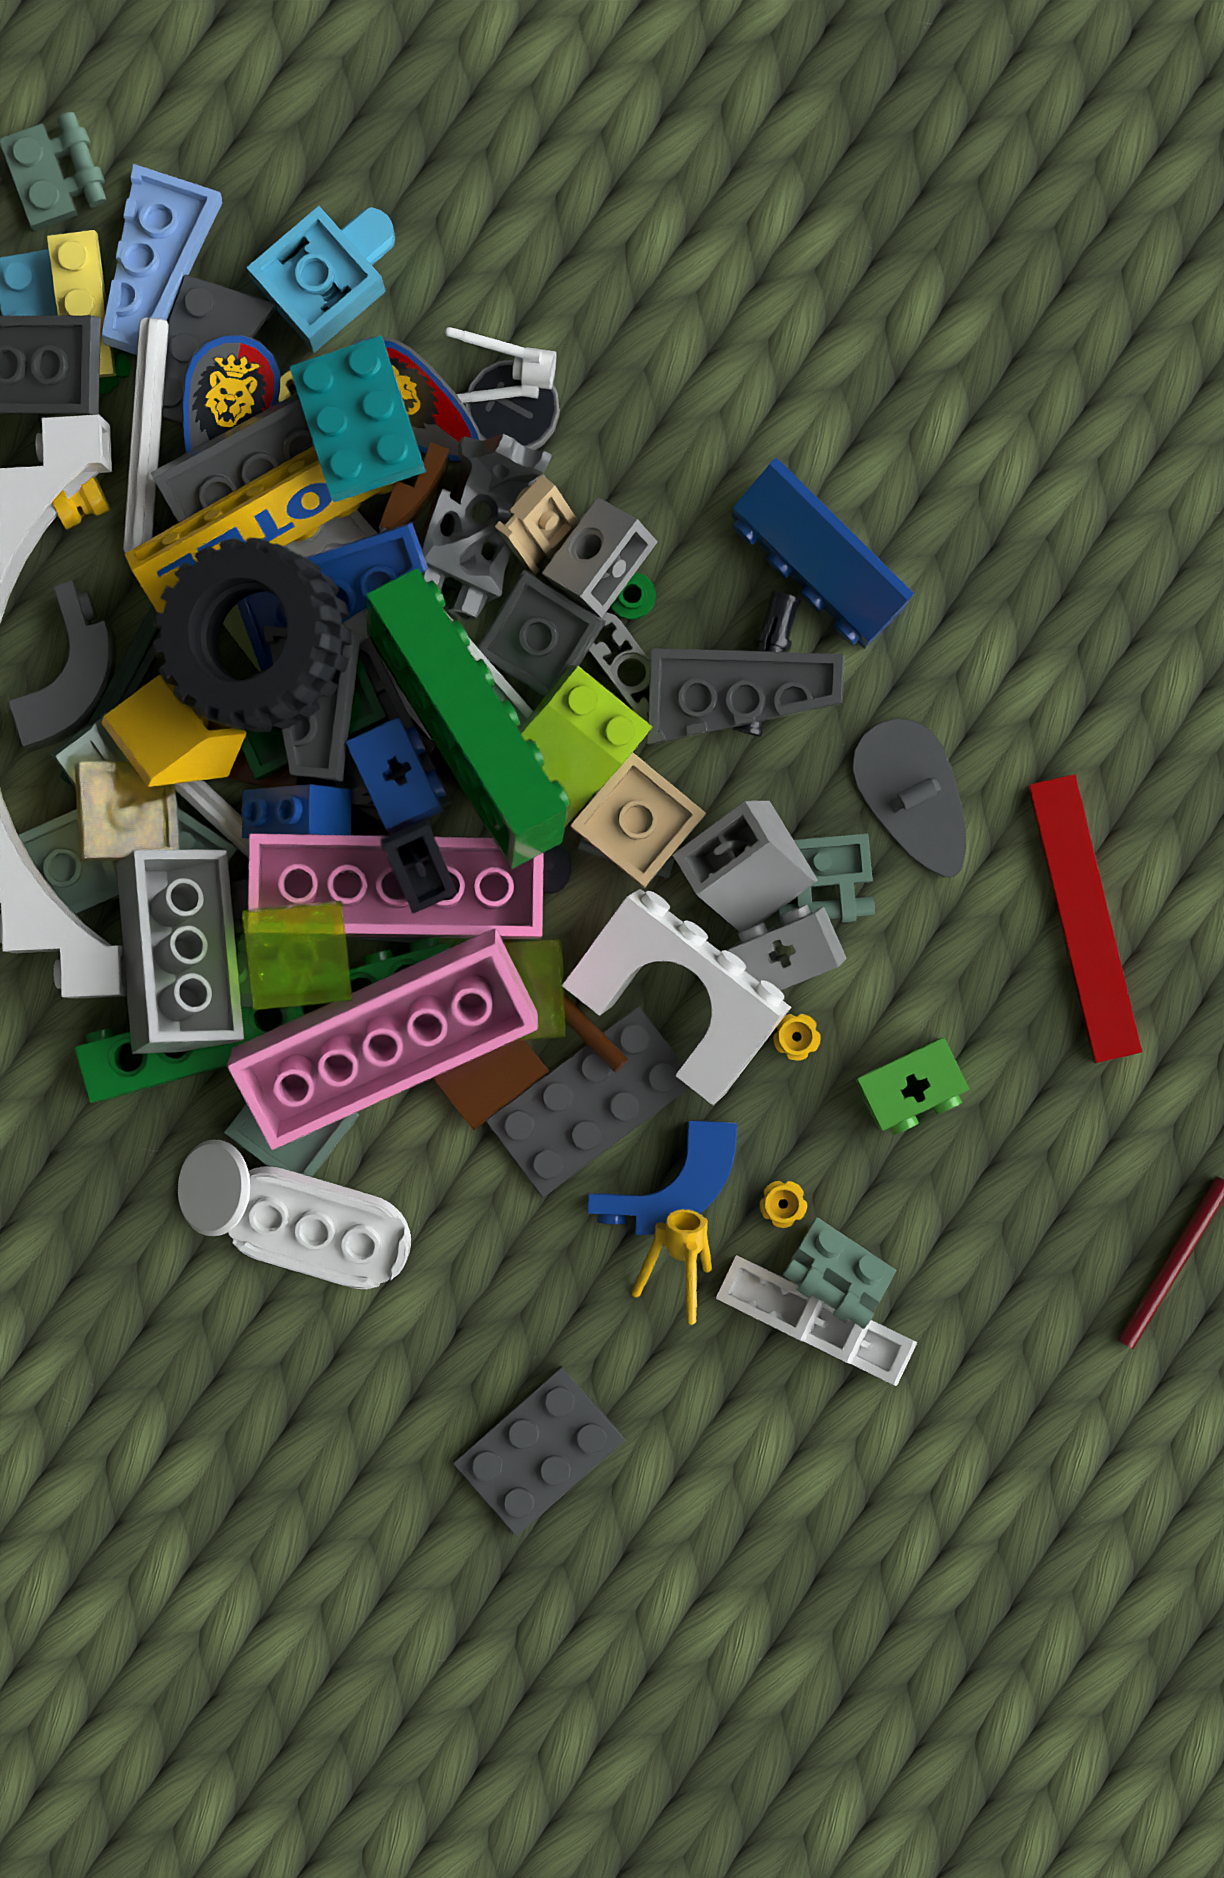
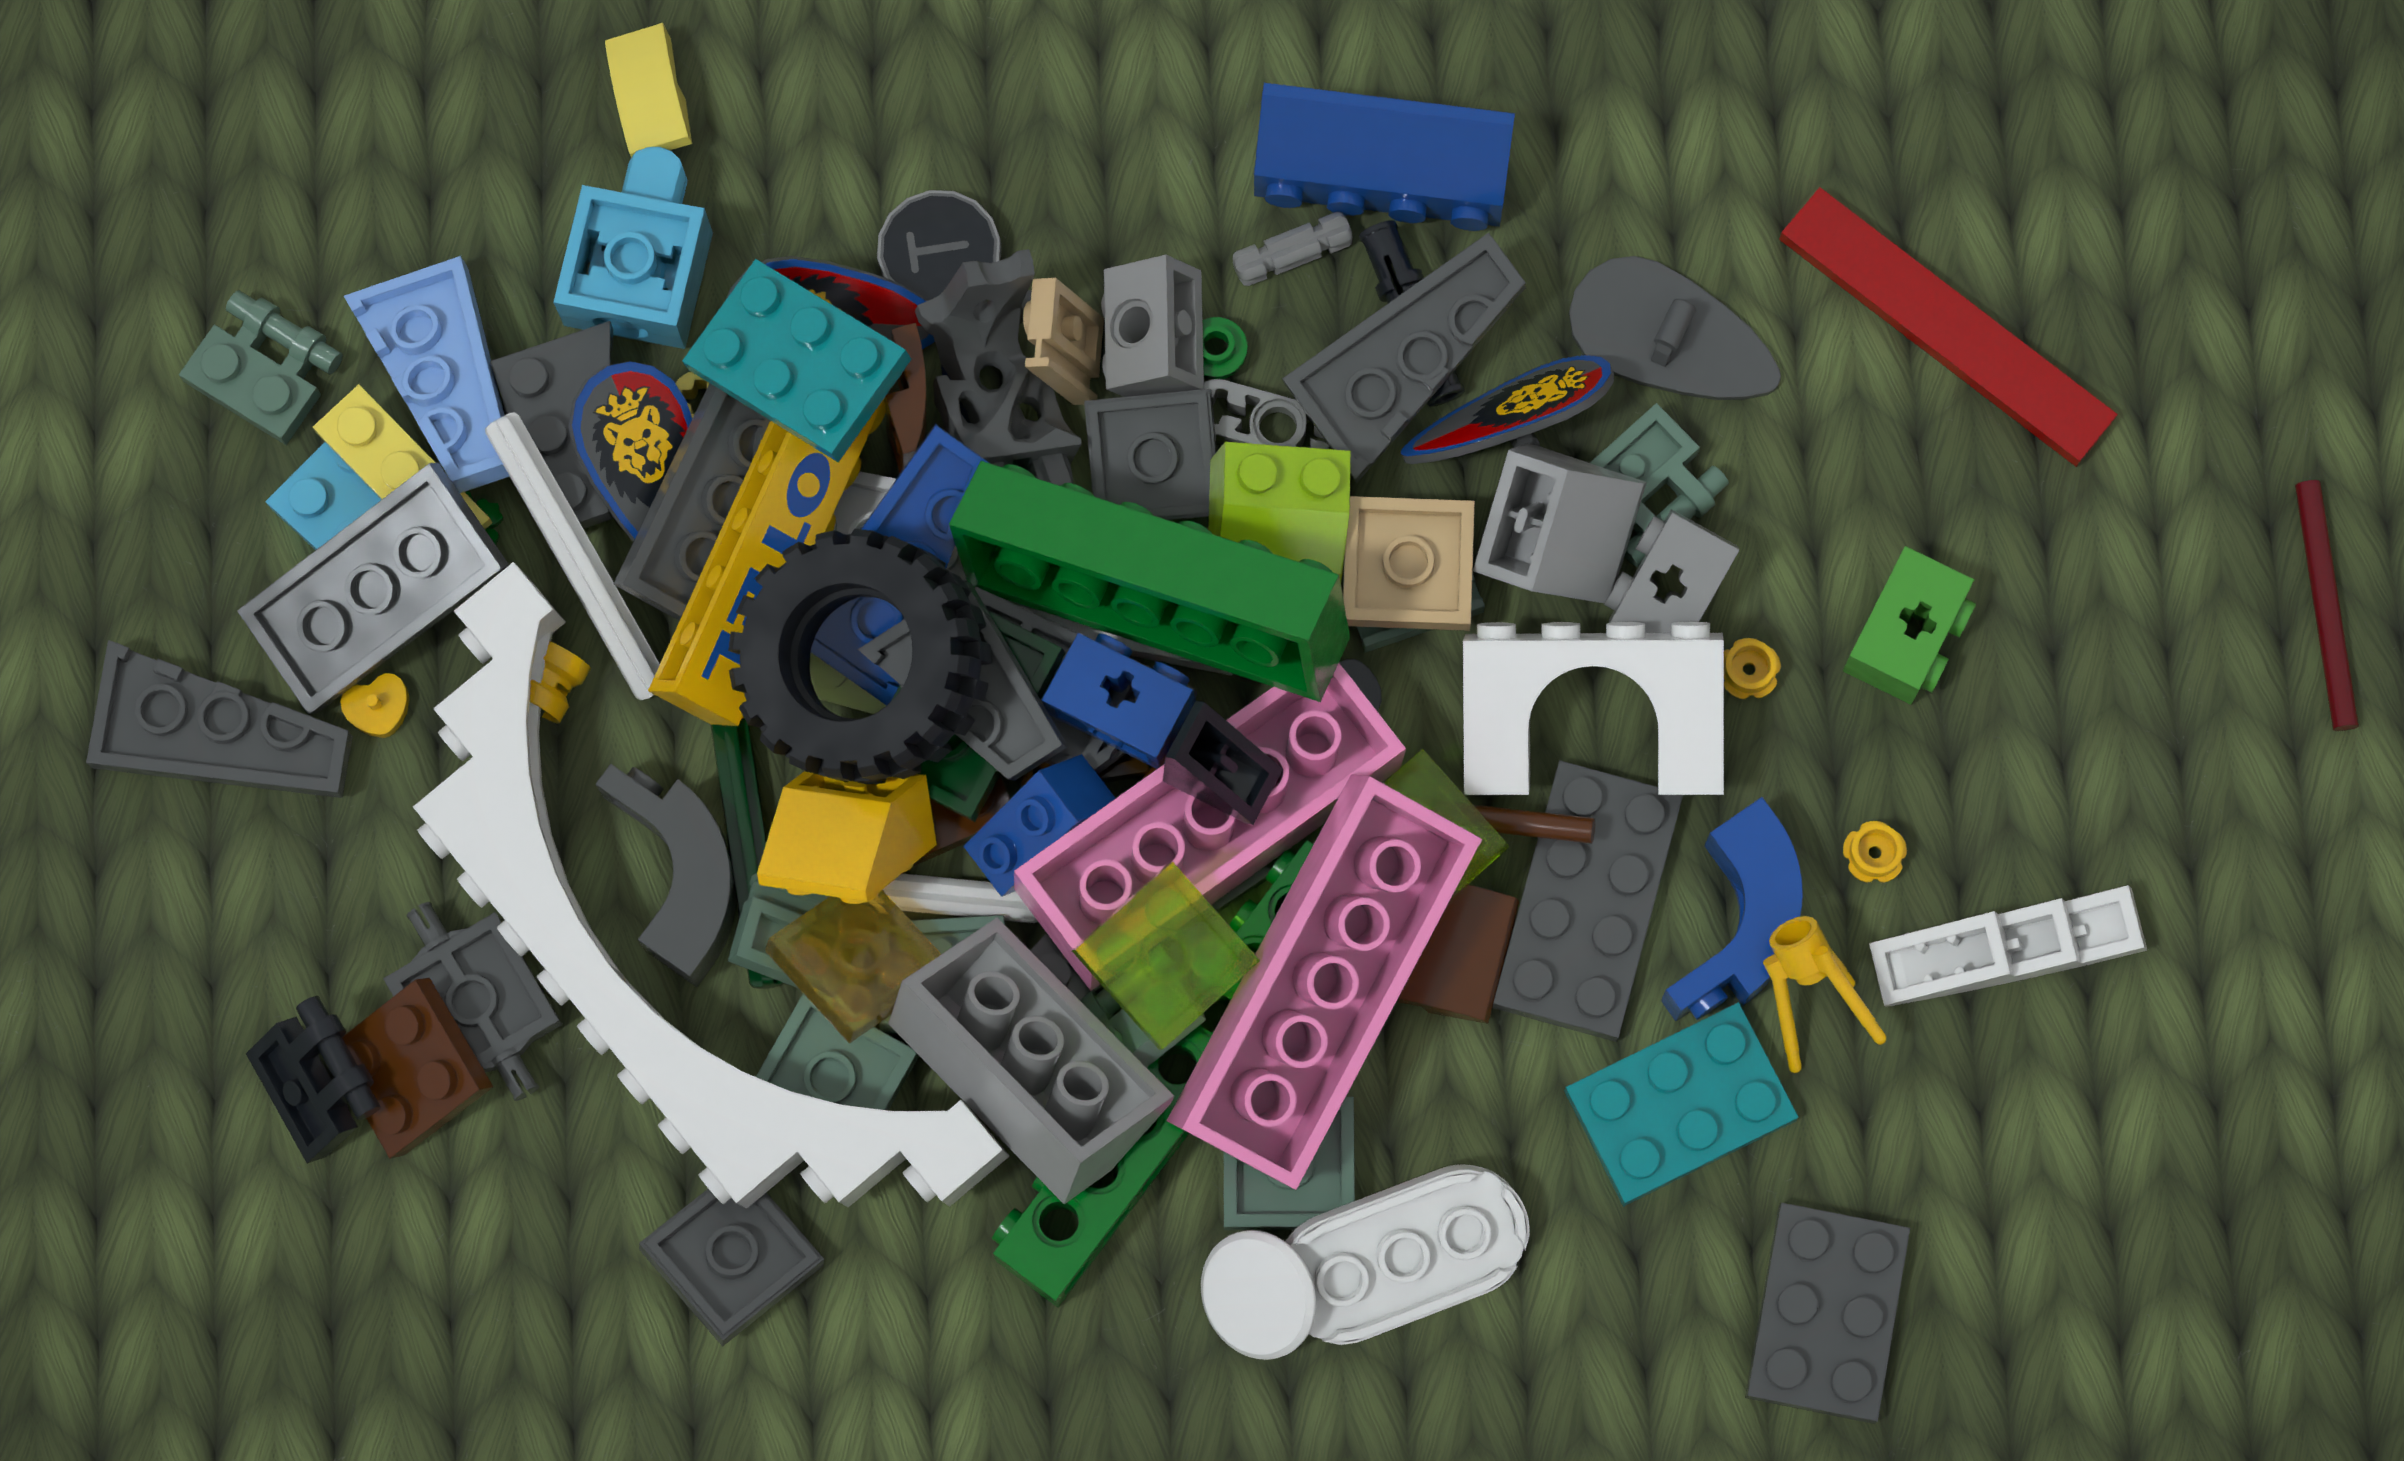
camera: 30 degrees left, 10 degrees down
(409, 172) = (647, 90): none -> light yellow slope
(531, 366) = (930, 189): white plant -> none
(550, 1263) = (1681, 1104): none -> teal plate
(726, 568) = (1292, 248): none -> light grey axle
(779, 773) = (1515, 409): none -> shield
(839, 1273) = (1993, 874): sand green plate -> none

